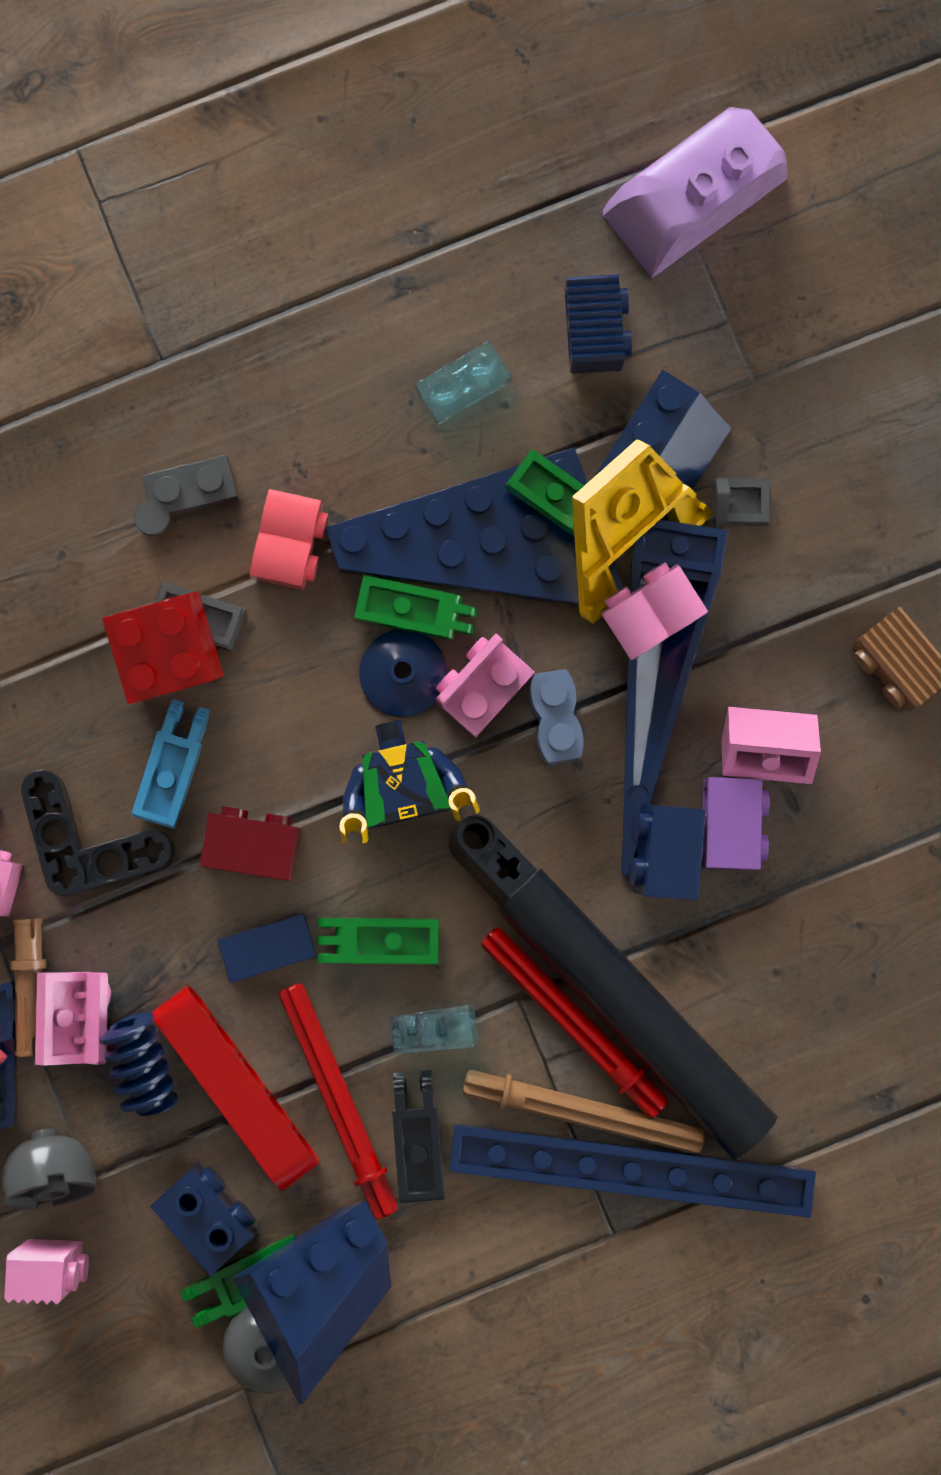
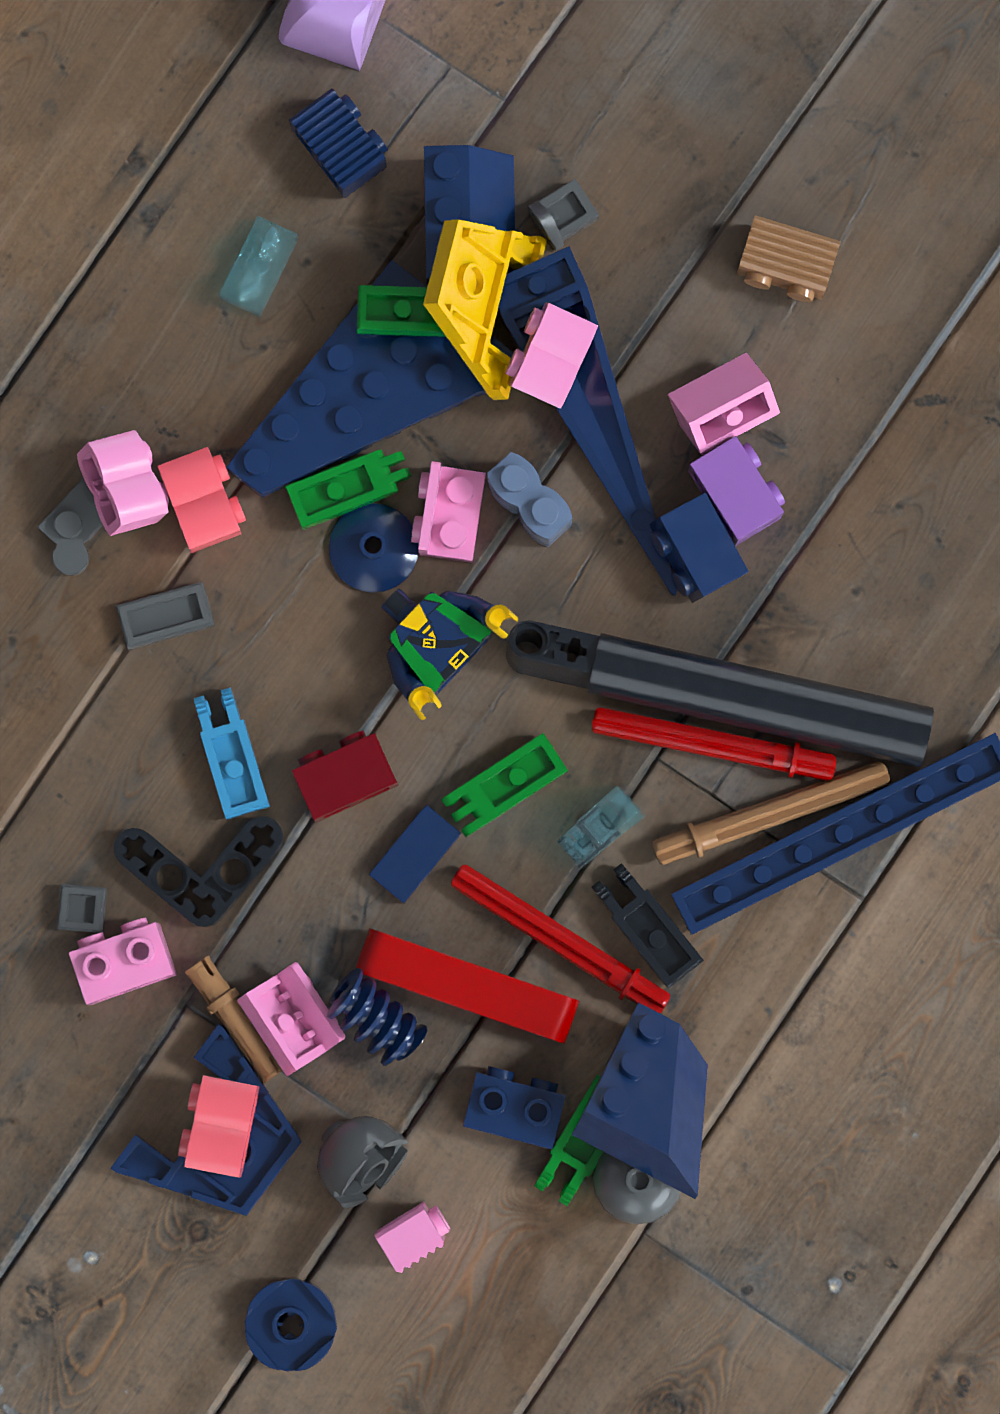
camera: 30 degrees left, 0 degrees up
(163, 647) = (158, 658): red brick -> none
(232, 484) = (123, 482): none -> bright pink brick

